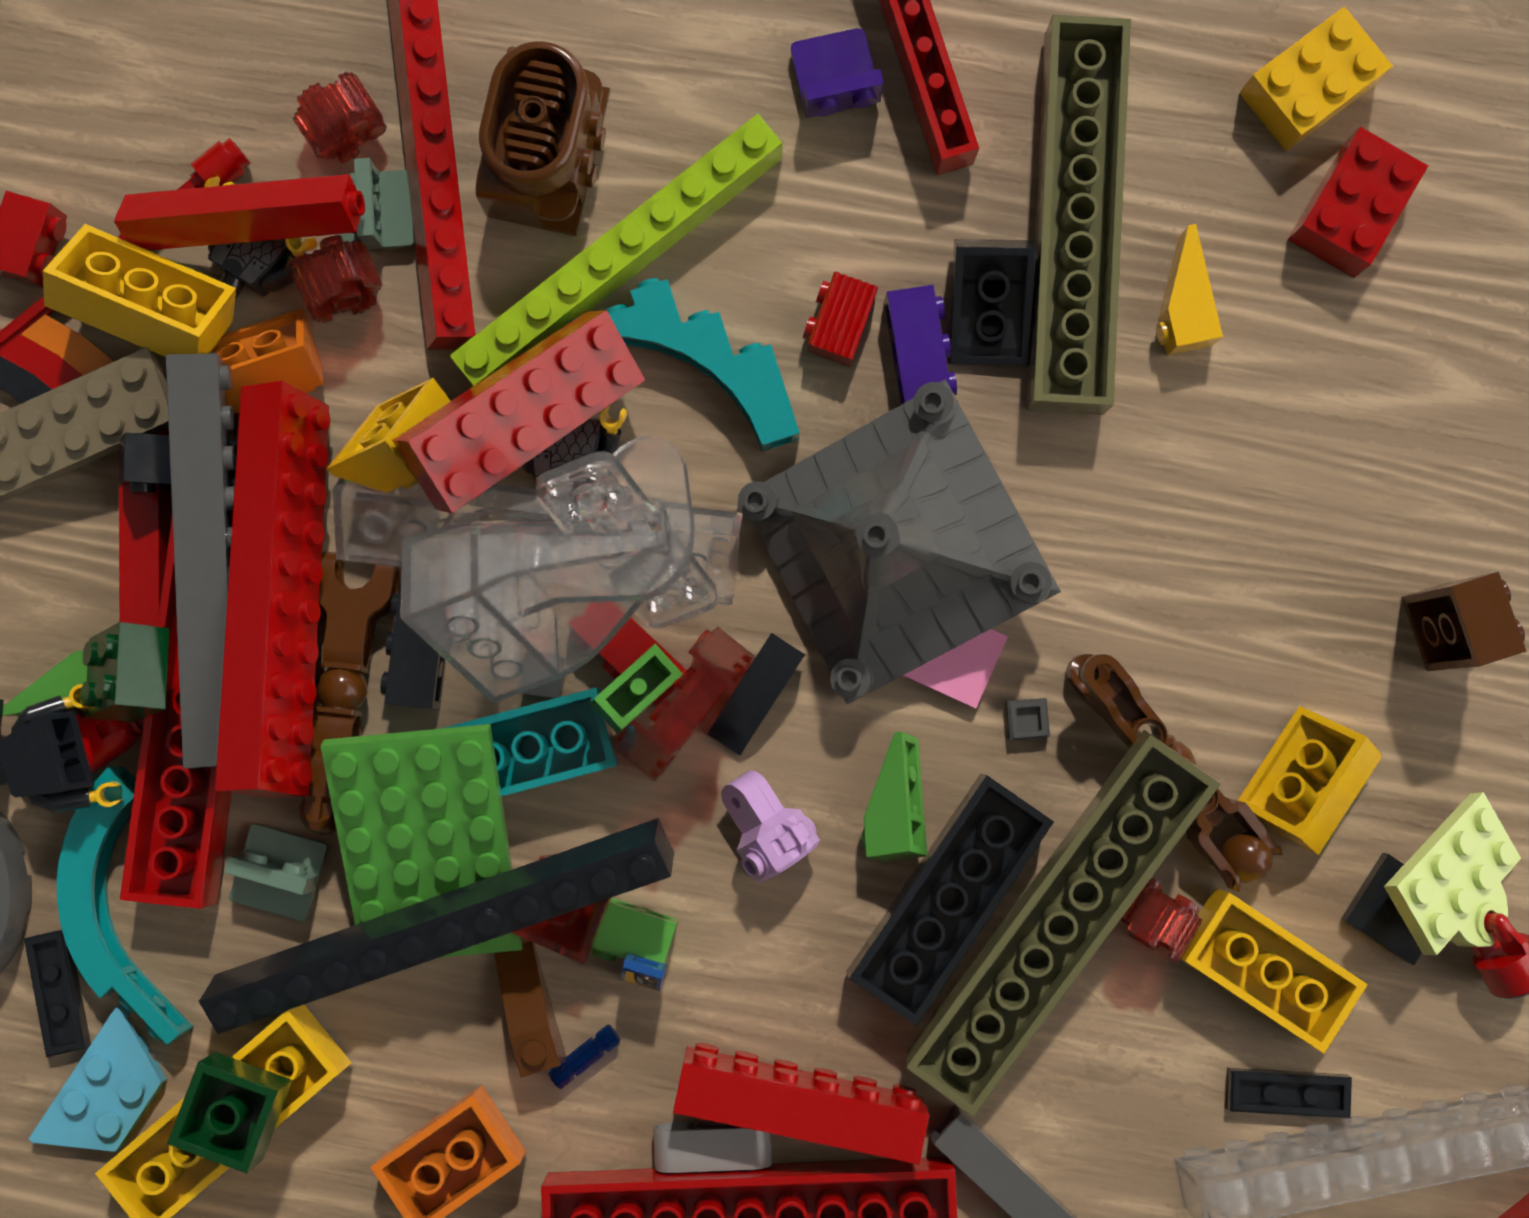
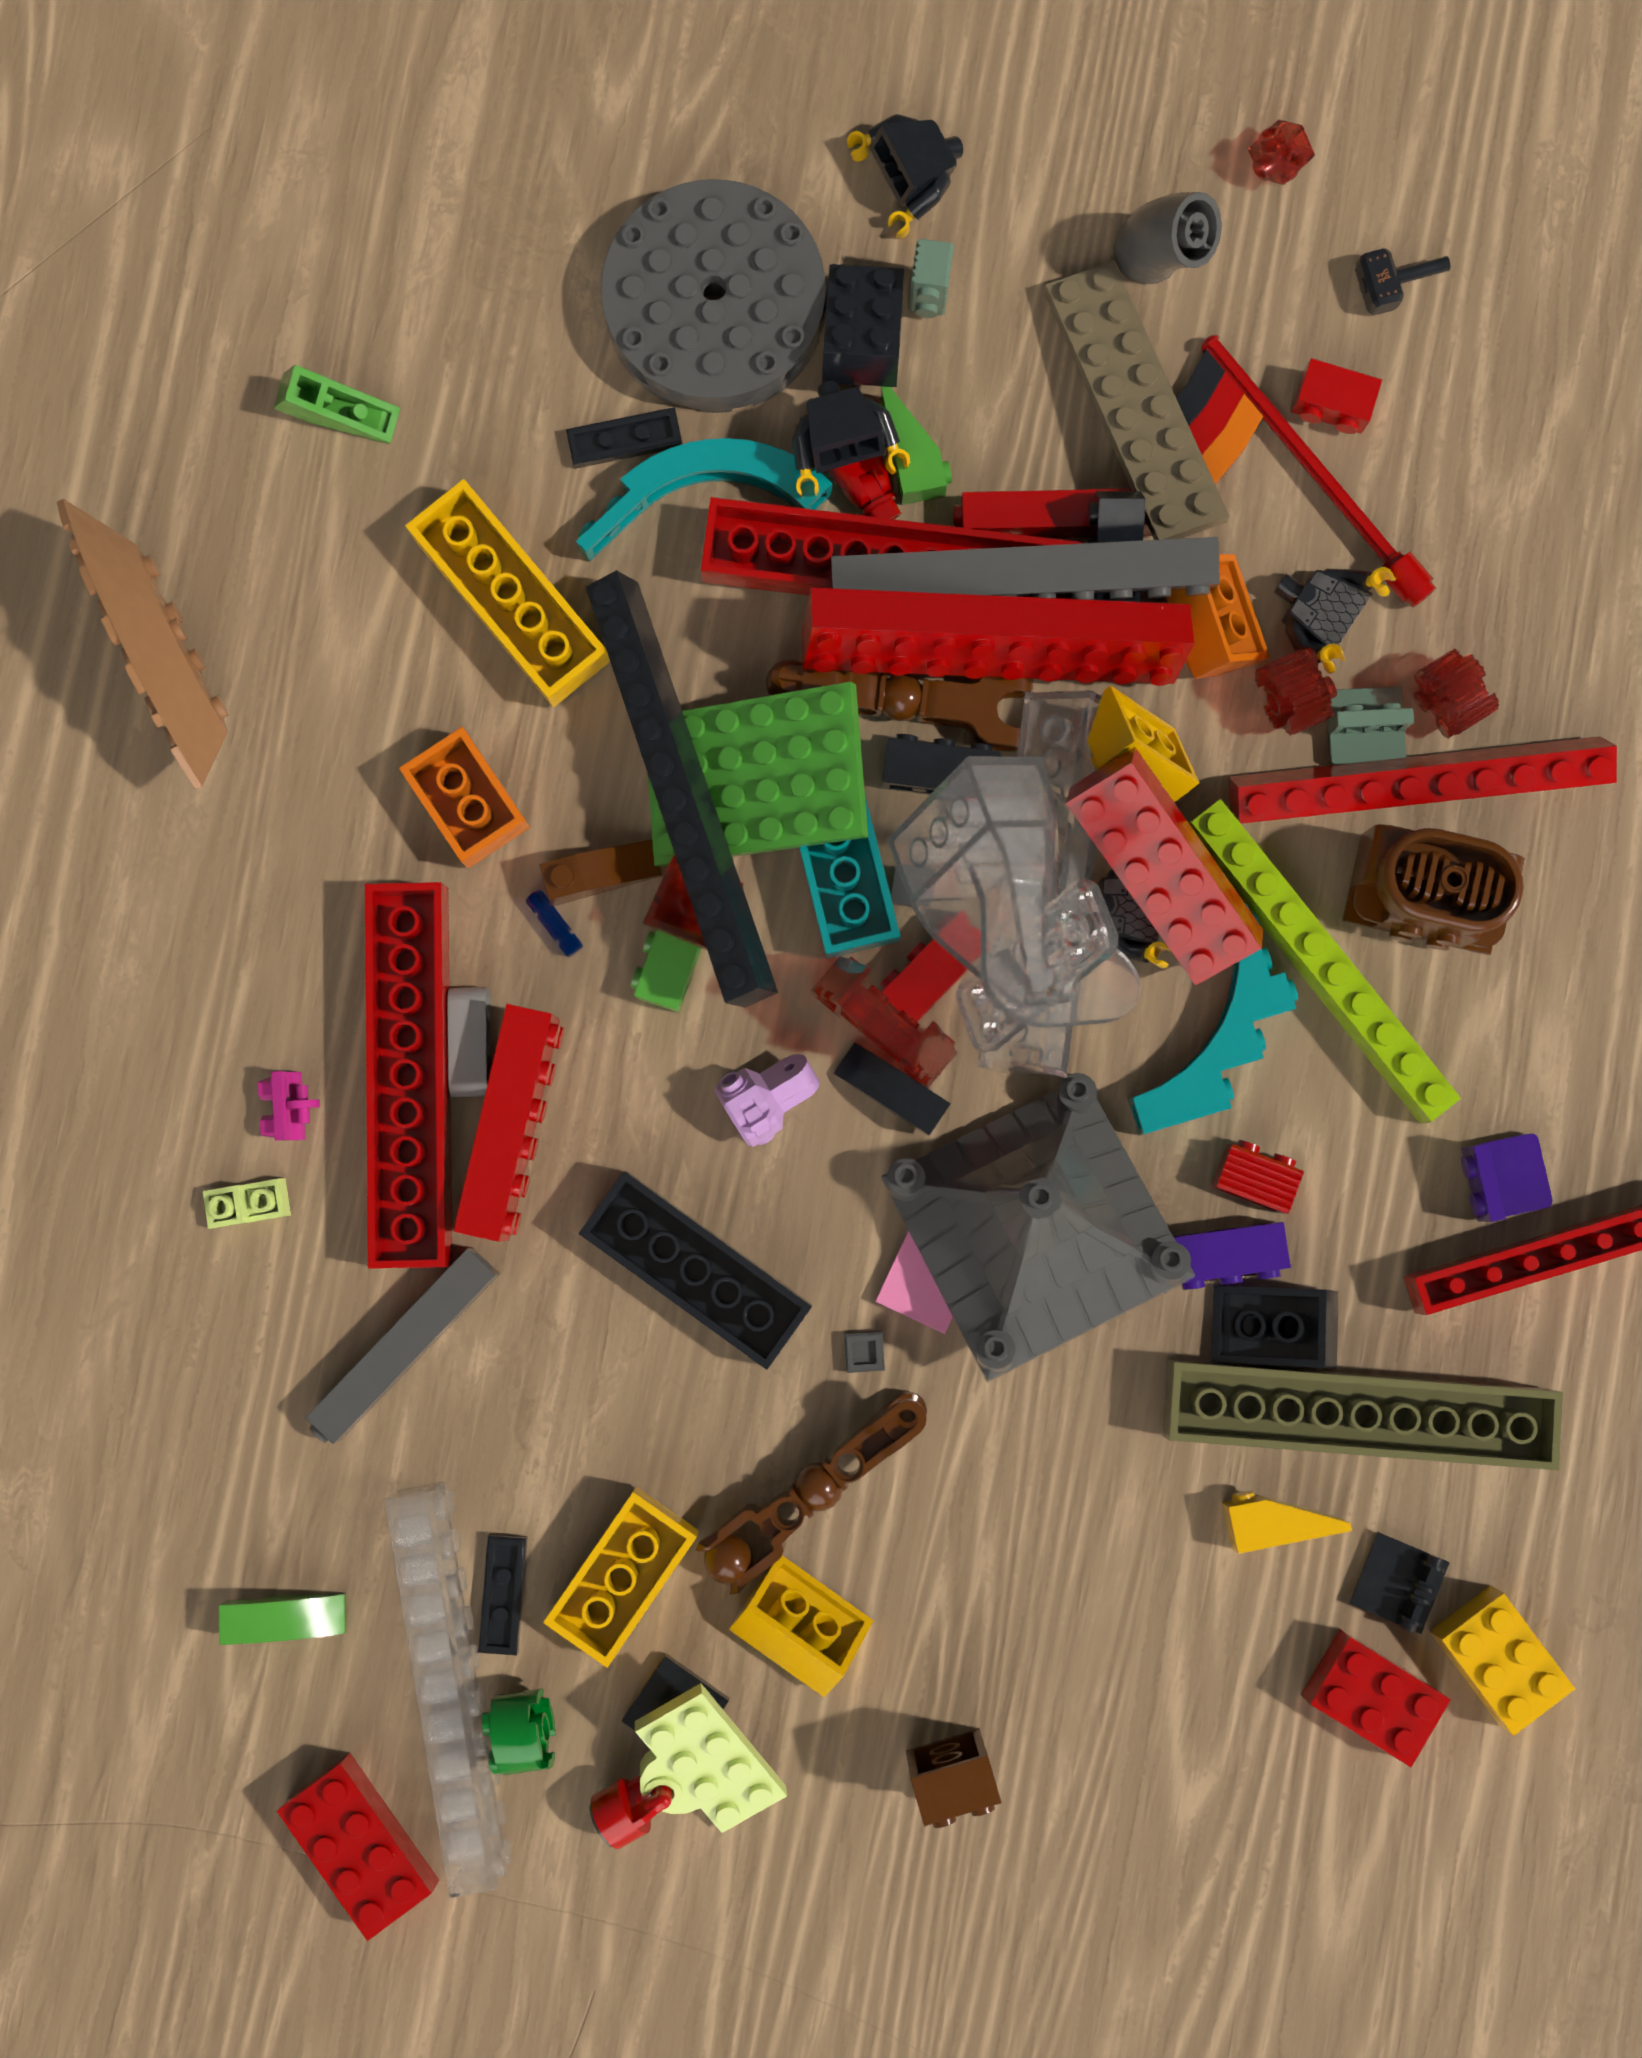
camera: 90 degrees right, 0 degrees up
(104, 1092) = (533, 482): medium azure wing -> none
(125, 672) = (920, 501): dark green brick -> none
(137, 294) = (1278, 507): yellow brick -> none
(229, 1112) = (518, 601): dark green brick -> none
(241, 213) = (1357, 602): red brick -> none
(277, 872) = (731, 638): sand green bracket -> none
(636, 688) = (899, 973): bright green brick -> none
(643, 972) = (632, 978): blue slope -> none
(896, 809) = (781, 1221): bright green slope -> none
(1060, 922) = (674, 1373): olive brick -> none
(1162, 921) = (673, 1467): clear red brick -> none
(1242, 180) = (1399, 1583): none -> black hinge
(1434, 1074) = (519, 1732): none -> green brick

